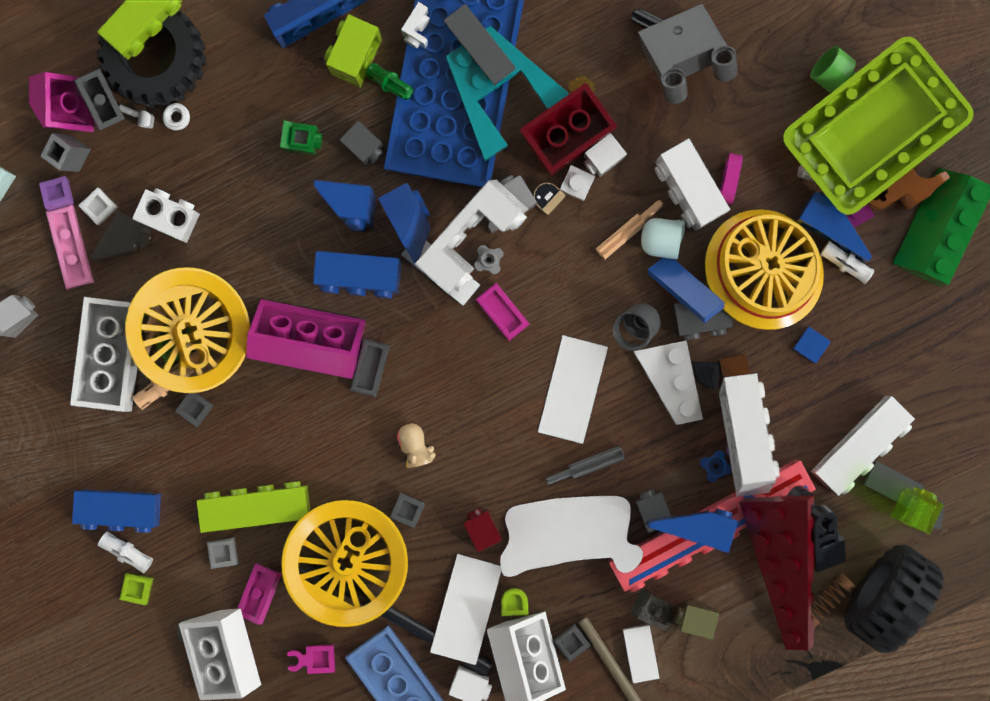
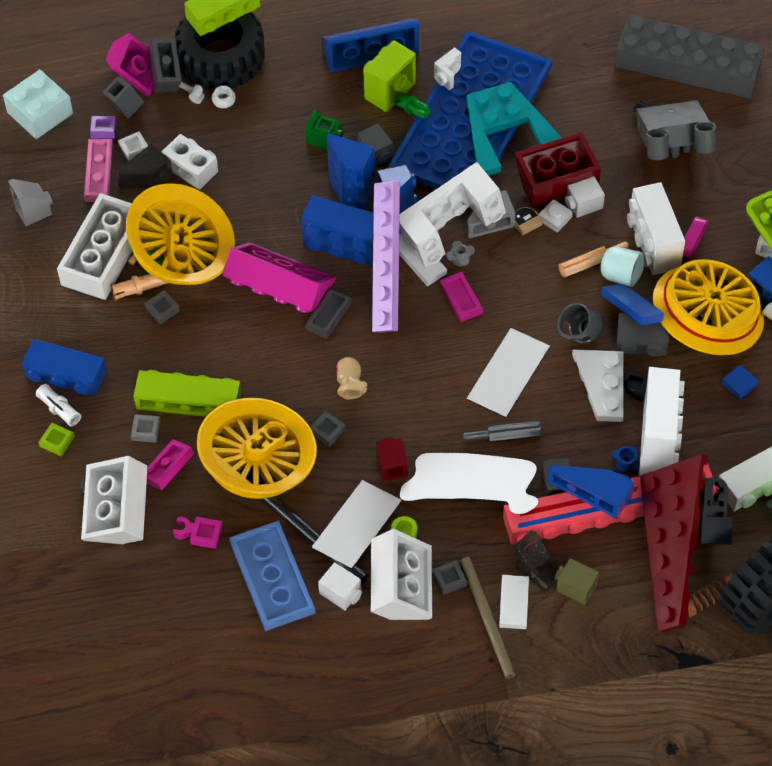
camera: 20 degrees right, 30 degrees down
(416, 304) = (386, 257): none -> lavender plate
(479, 44) = (497, 88): dark grey tile -> none

